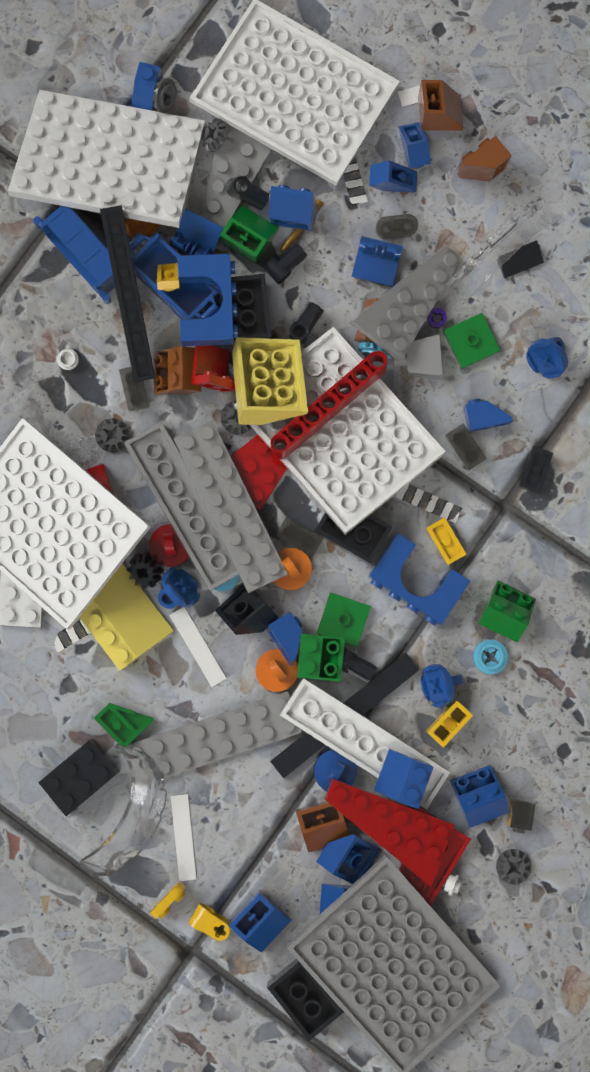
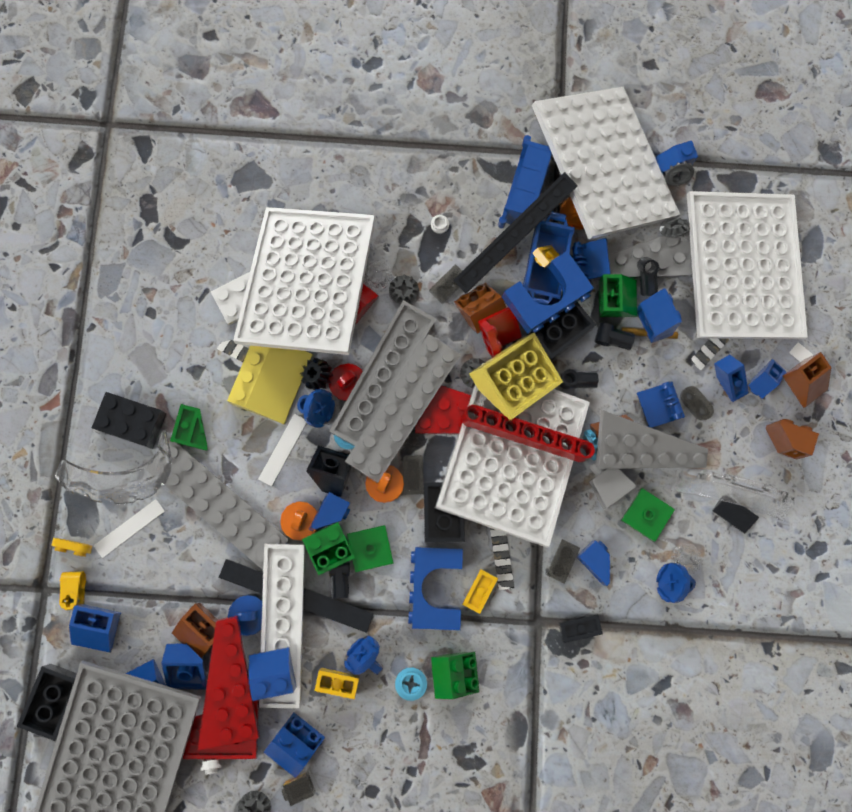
camera: 55 degrees right, 5 degrees down
(437, 311) = (642, 480): dark purple bush -> none

